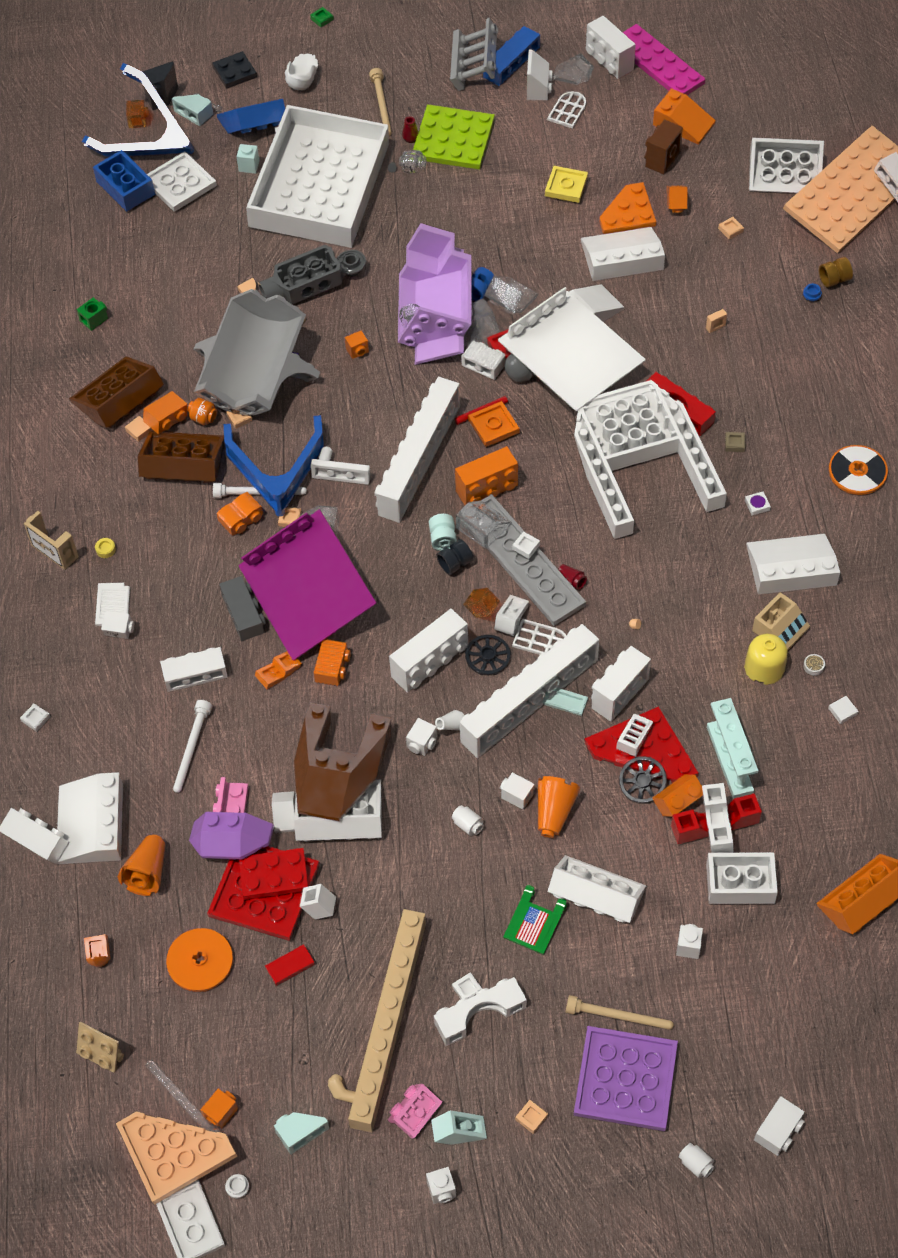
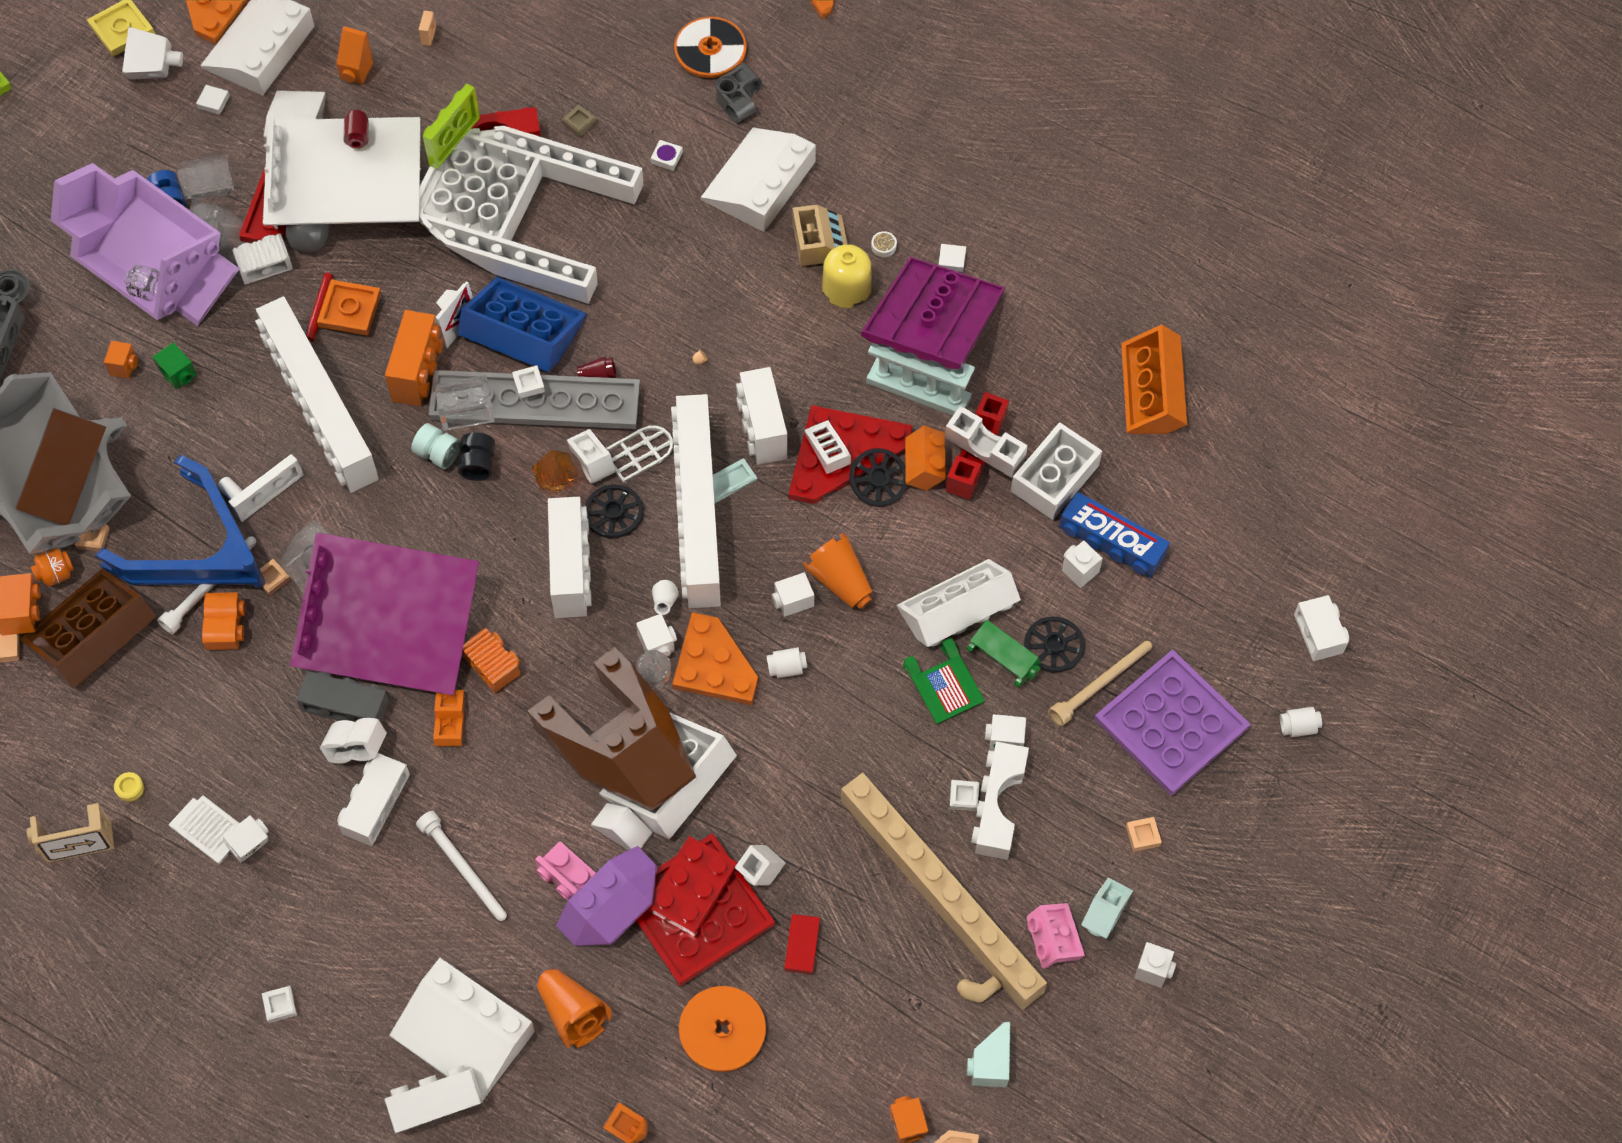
camera: 55 degrees left, 5 degrees up
(218, 630) = (353, 740): none -> white brick
(253, 363) = (60, 467): none -> reddish brown tile
(376, 371) = (174, 366): none -> green brick
(397, 750) = (654, 668): none -> clear head
(434, 781) = (713, 663): none -> orange plate
(529, 981) = (1006, 730): none -> white brick
(535, 475) = (451, 304): none -> white piece
(558, 209) = (148, 55): none -> white torso
(564, 260) = (212, 99): none -> white tile
(565, 514) = (520, 323): none -> blue slope
(584, 940) = (1005, 652): none -> green brick
(601, 334) = (356, 129): none -> dark red brick
(620, 968) = (1055, 644): none -> black wheel
(648, 376) = (451, 126): none -> lime plate
(657, 300) = (354, 56): none -> orange slope
(729, 947) = (1114, 535): none -> blue brick
(781, 722) = (933, 313): none -> magenta piece
(845, 503) = (741, 84): none -> dark grey piece

